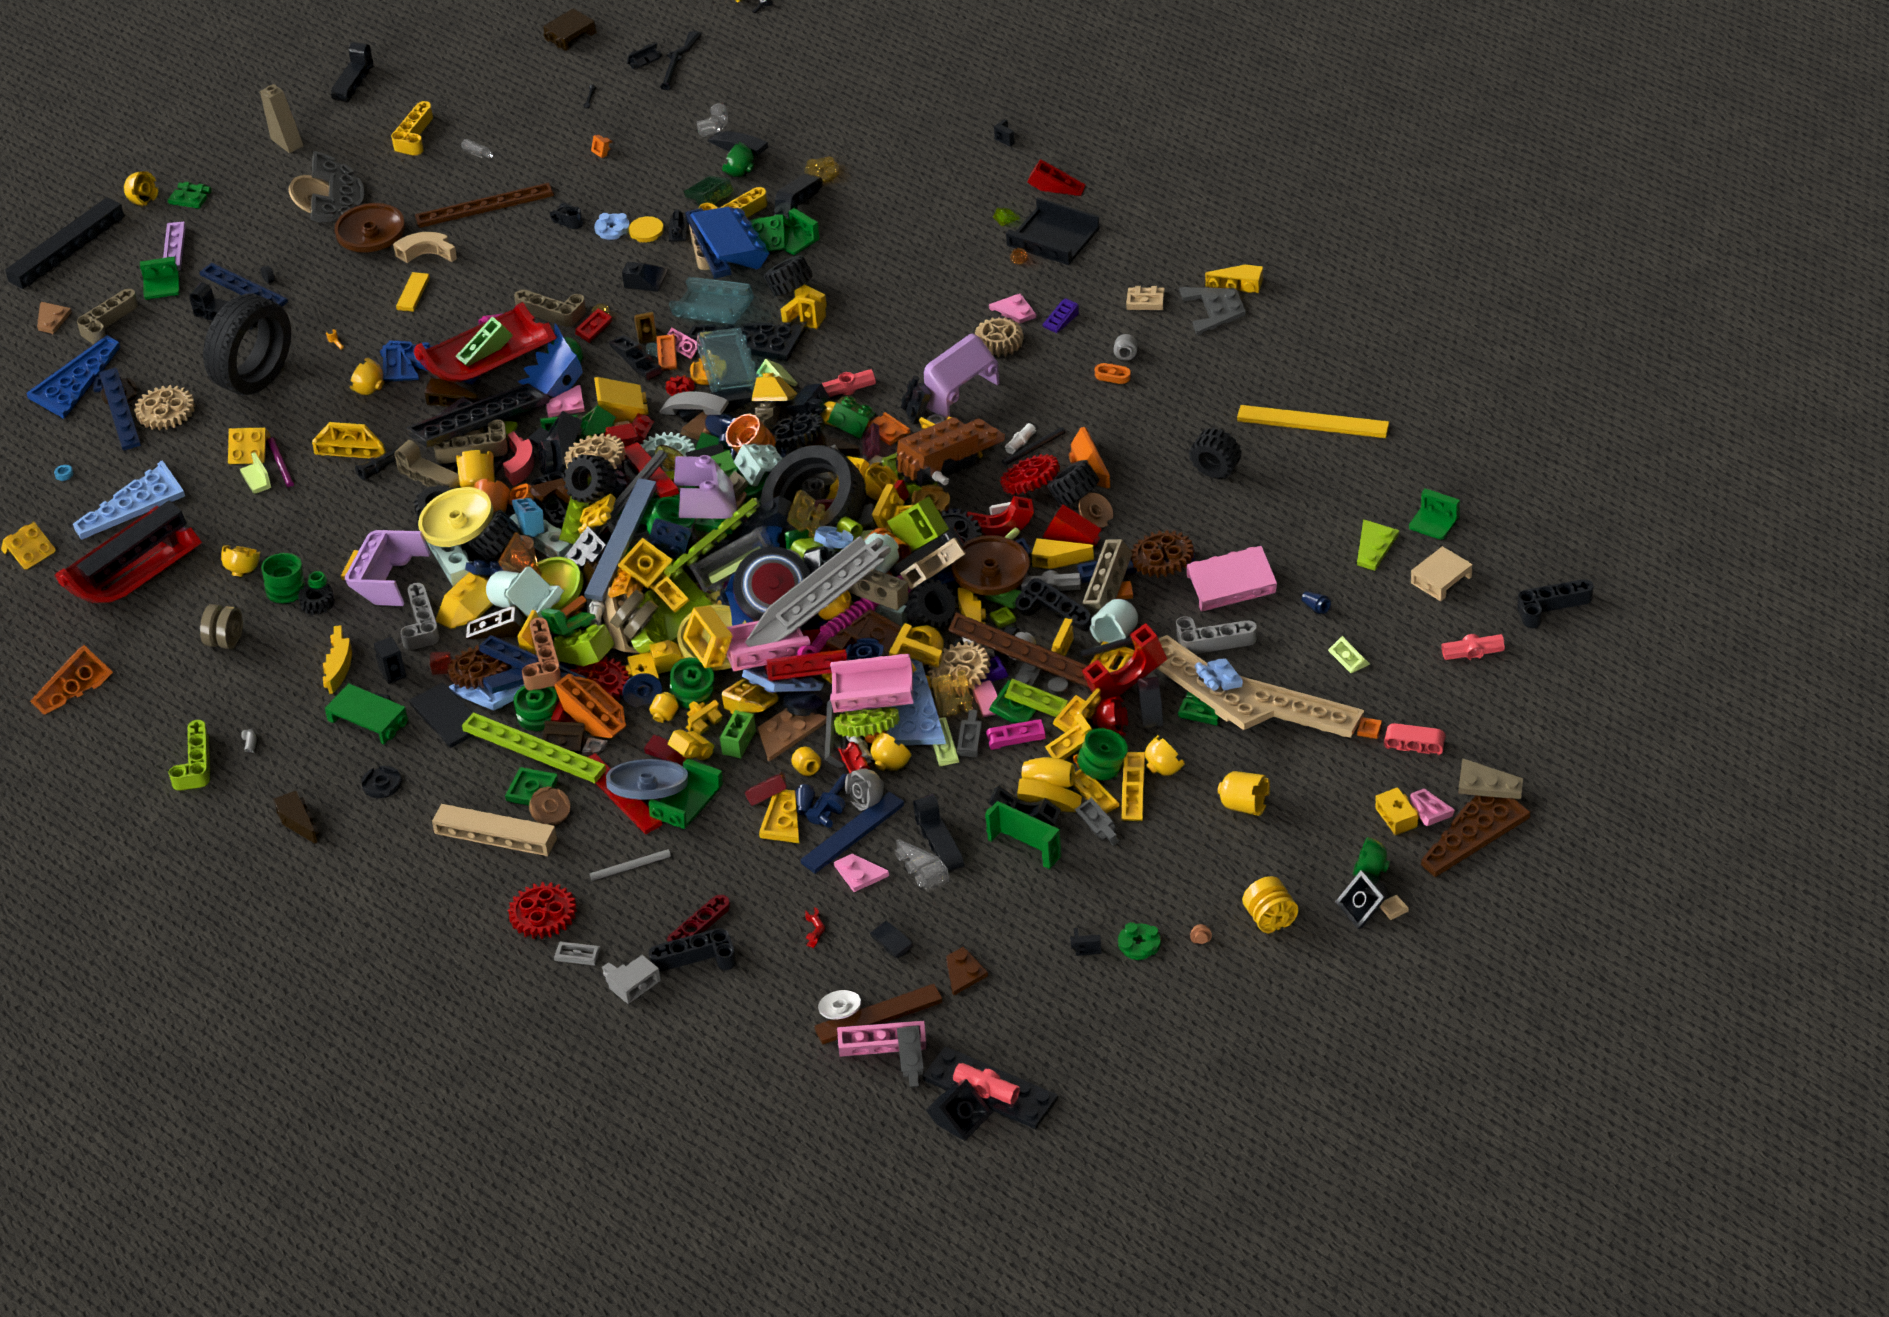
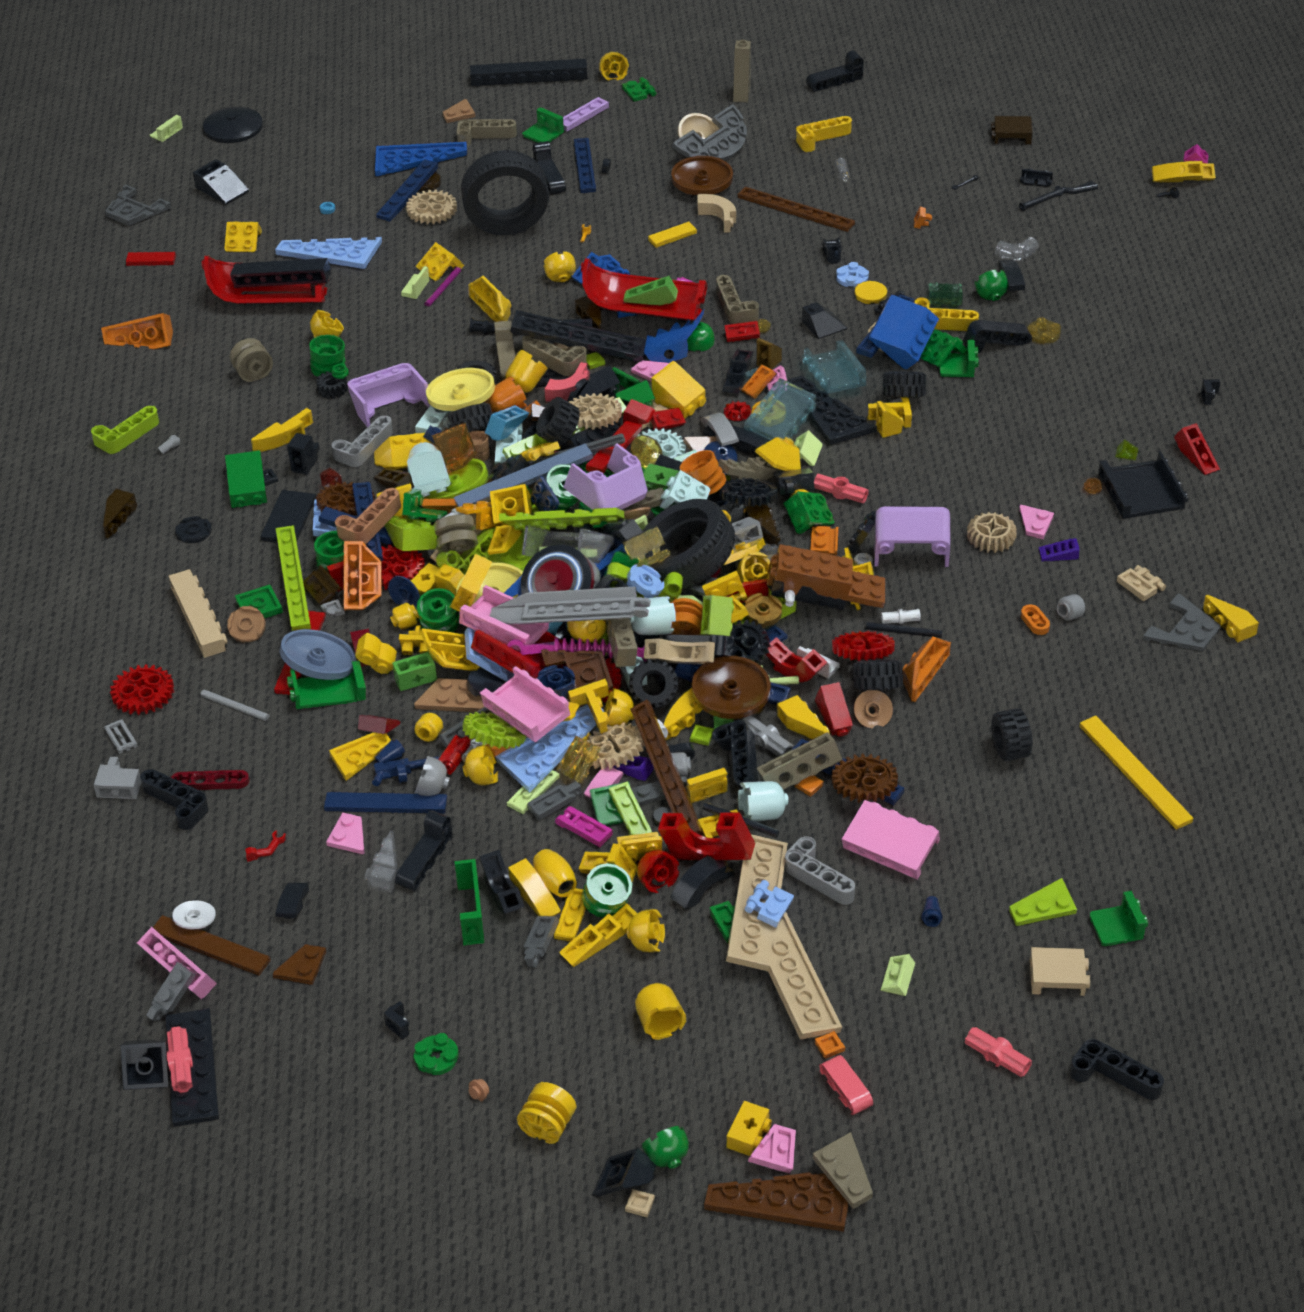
camera: 45 degrees right, 0 degrees up
(871, 441) = (802, 538): clear pink plate -> none

